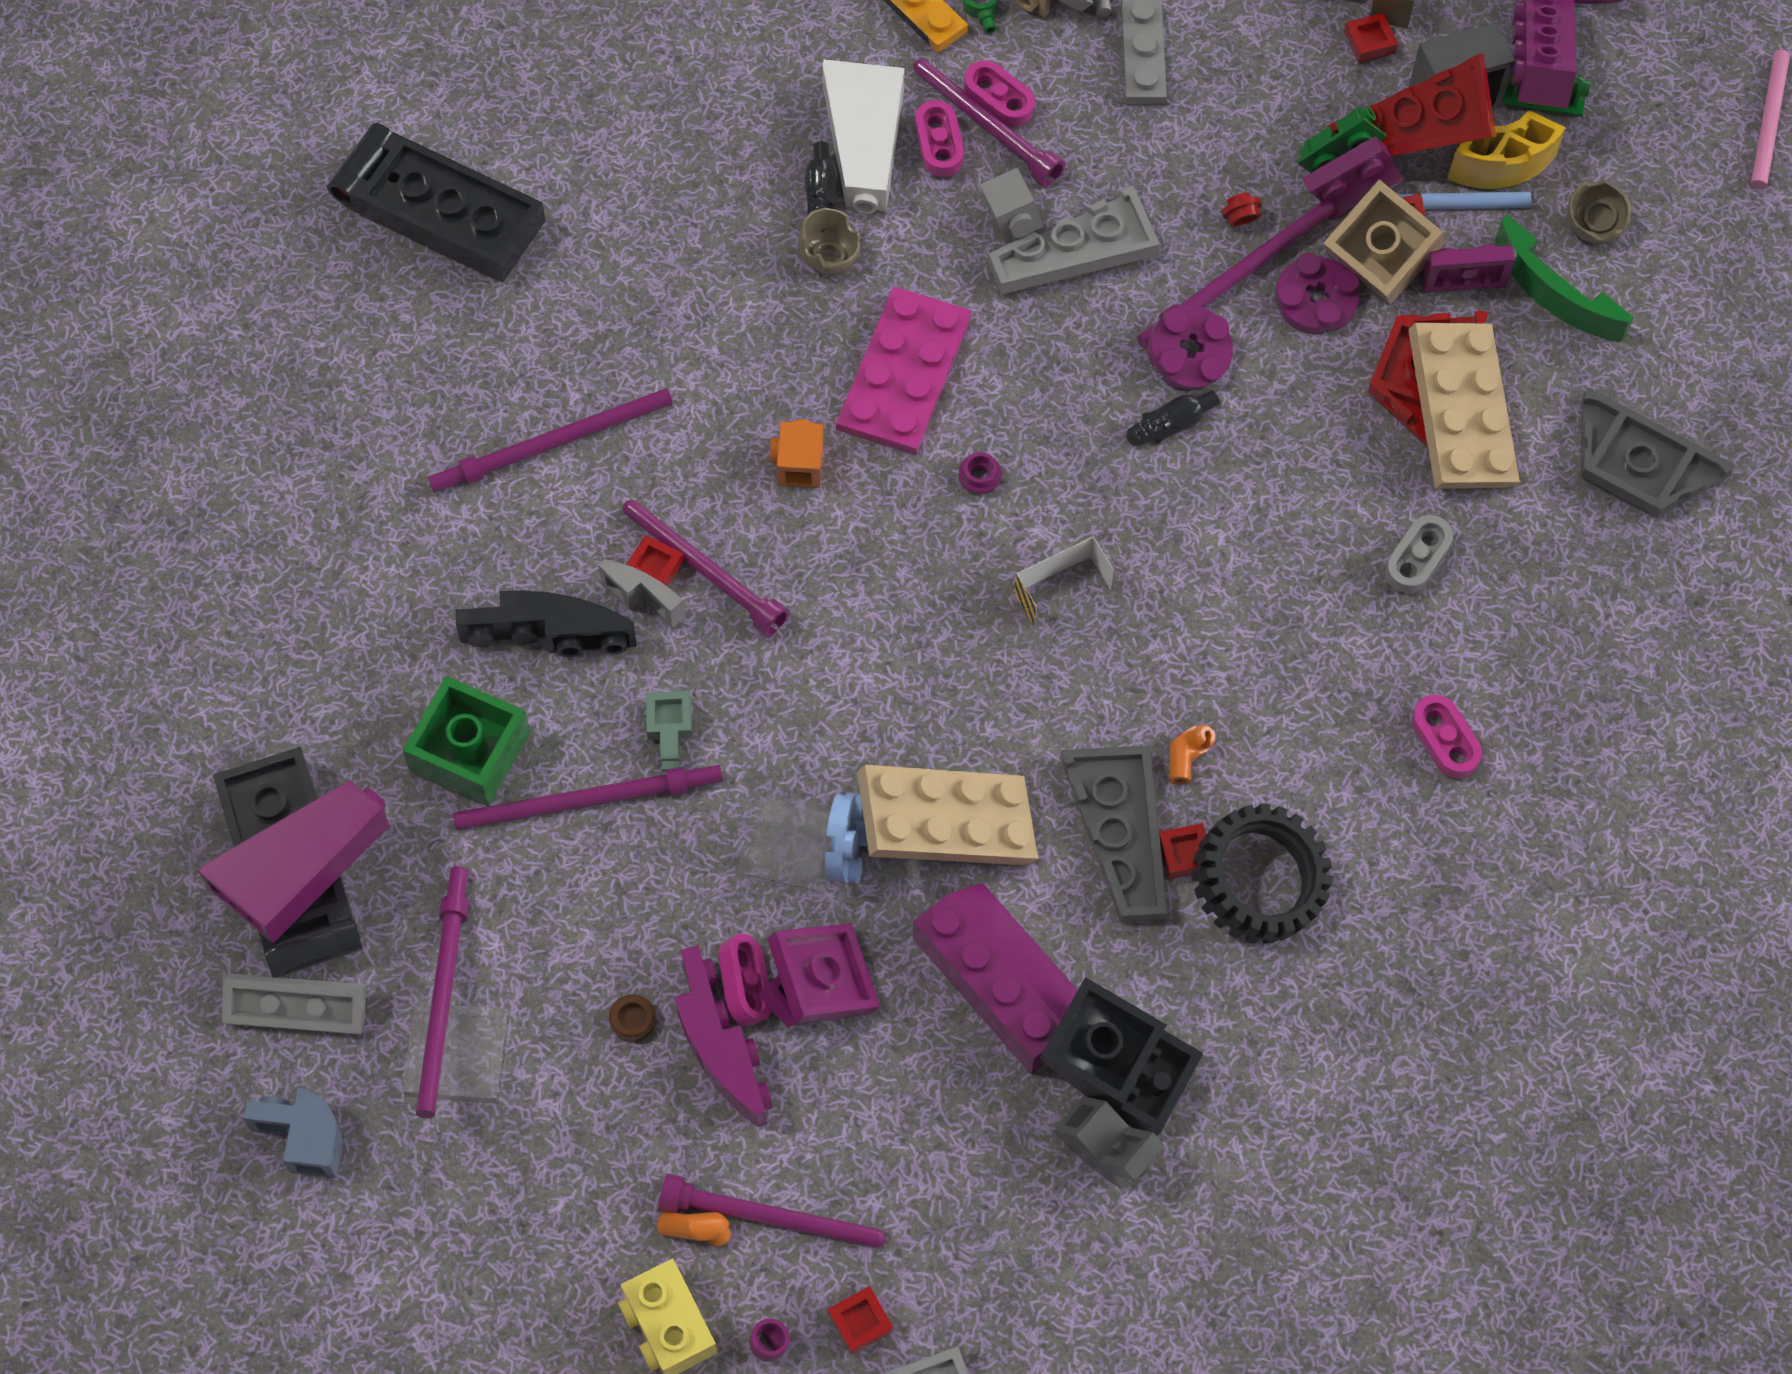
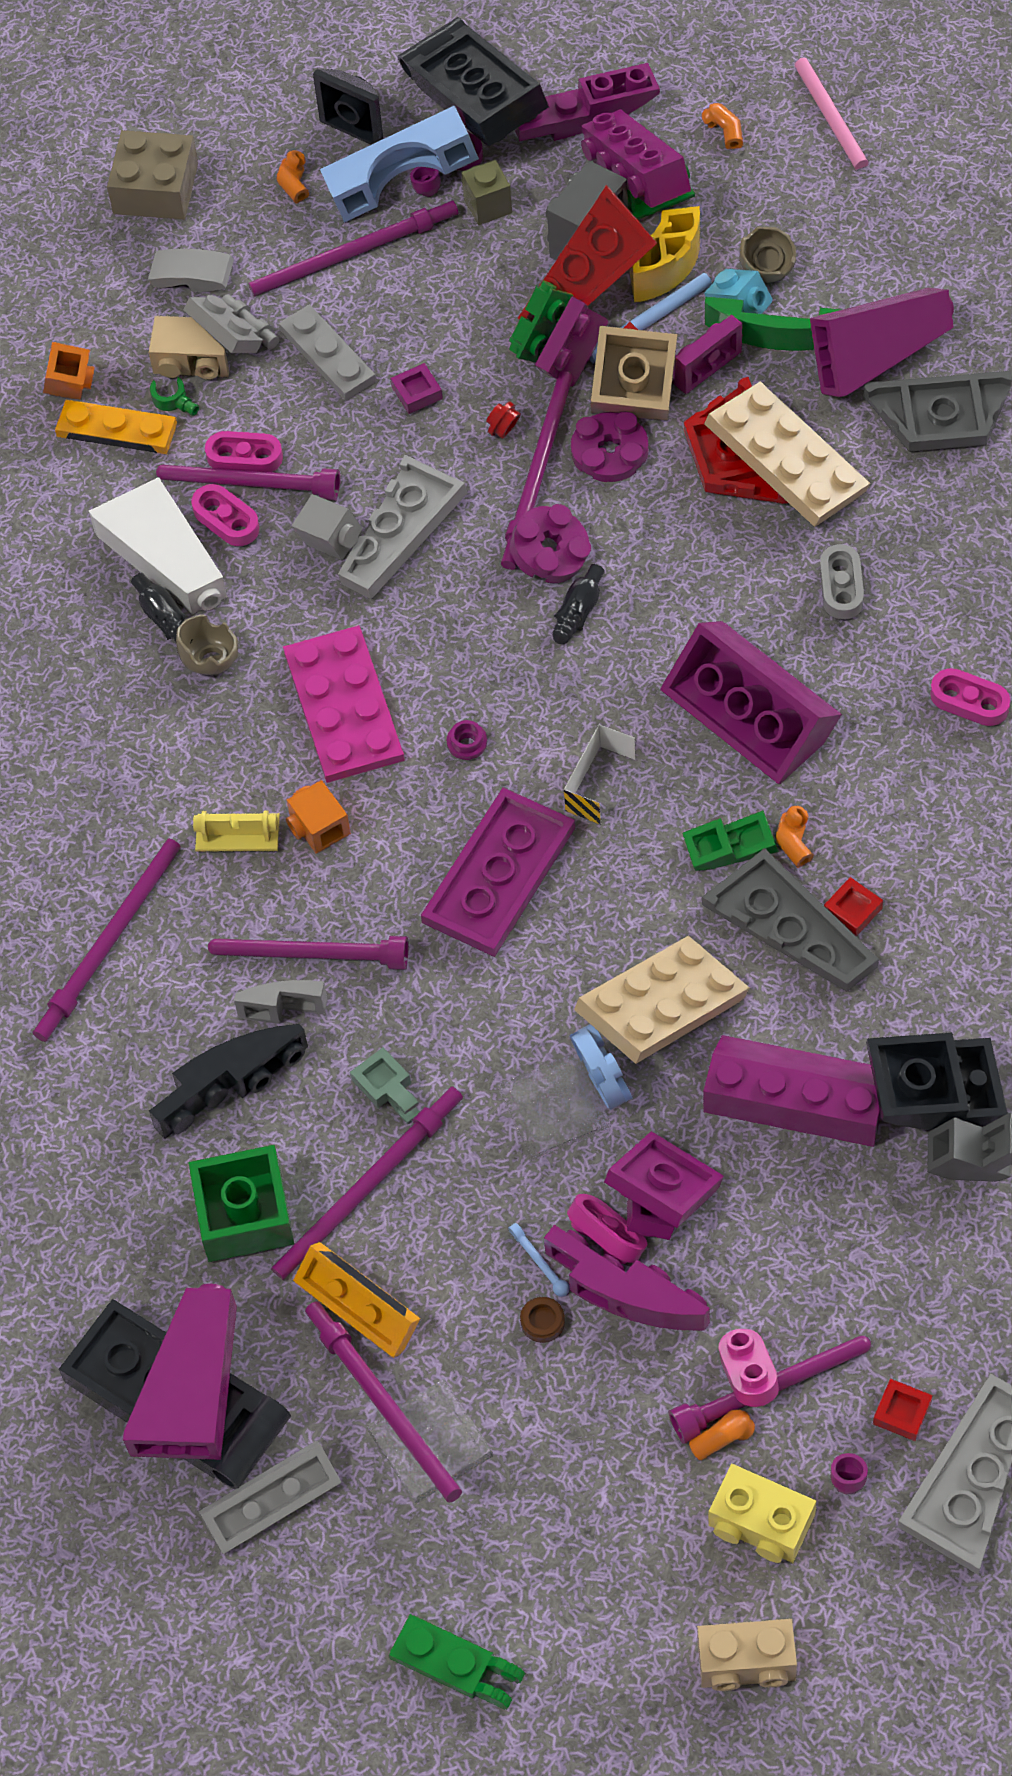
camera: 30 degrees left, 5 degrees down
(311, 1127) = (361, 1575): sand blue brick -> none
(325, 1248) = (452, 1661): none -> green hinge
(495, 890) = (356, 1299): none -> light orange plate
(656, 559) = (271, 967): red plate -> none
(668, 1000) = (560, 1287): none -> light blue hinge
(726, 420) = (236, 832): none -> light yellow hinge
(762, 1182) = (743, 1360): none -> dark pink plate
(911, 606) = (498, 872): none -> magenta plate
(1122, 717) = (722, 845): none -> green slope
(1191, 132) = (416, 388): none -> magenta plate
(1248, 604) = (749, 700): none -> magenta slope
(1300, 846) = (936, 846): black tyre -> none
(1370, 38) = (493, 235): red plate -> none
(1551, 228) = (741, 285): none -> medium azure bracket
(1631, 350) = (875, 336): none -> magenta slope
(1668, 67) = (719, 115): none -> orange arm

